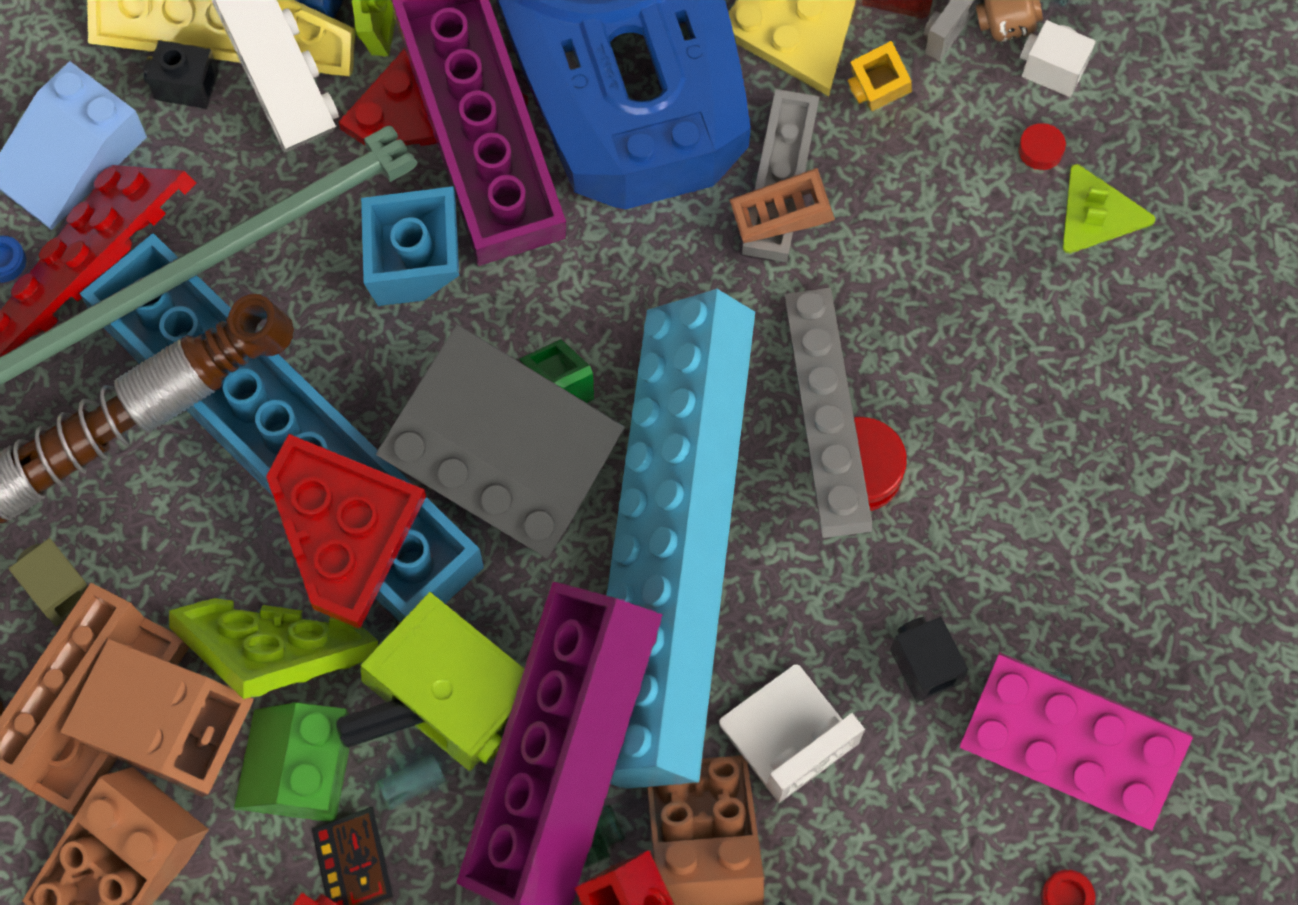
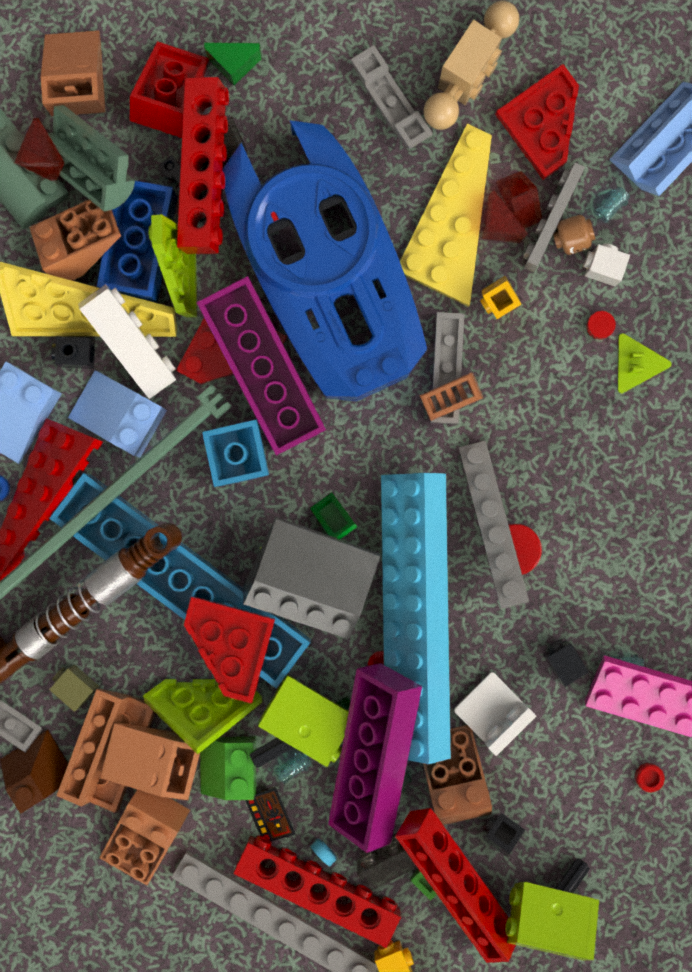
camera: 10 degrees left, 20 degrees up
(234, 167) = (117, 414): none -> light blue slope

